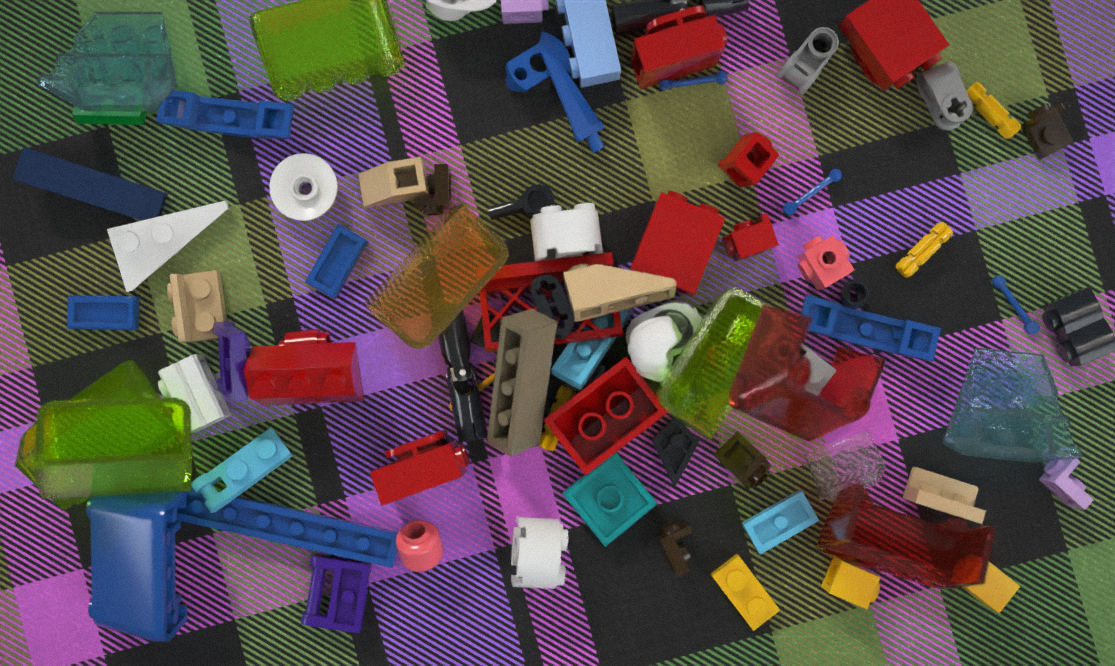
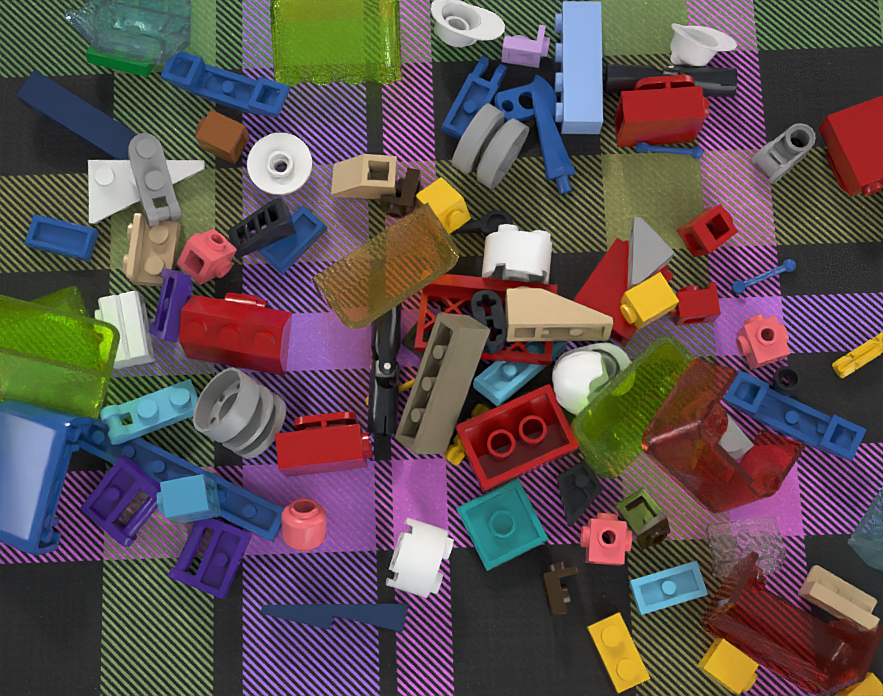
camera: 20 degrees right, 10 degrees down
(178, 234) = (152, 179): none -> light grey plate
(230, 558) = (116, 494): none -> dark purple plate
(237, 171) = (222, 136): none -> dark orange brick
(255, 301) = (207, 256): none -> coral brick
(302, 554) = (189, 499): none -> dark azure brick
(316, 261) = (275, 231): none -> black slope
(329, 456) = (239, 413): none -> light grey wheel
(457, 626) = (323, 615): none -> dark blue slope
(480, 195) = (445, 203): none -> yellow brick
(484, 76) = (472, 97): none -> blue hinge
(509, 122) = (489, 145): none -> light grey wheel
(694, 206) = (646, 253): none -> light grey slope
(706, 254) = (648, 301): none -> yellow brick
(718, 503) = (596, 549): none -> coral brick

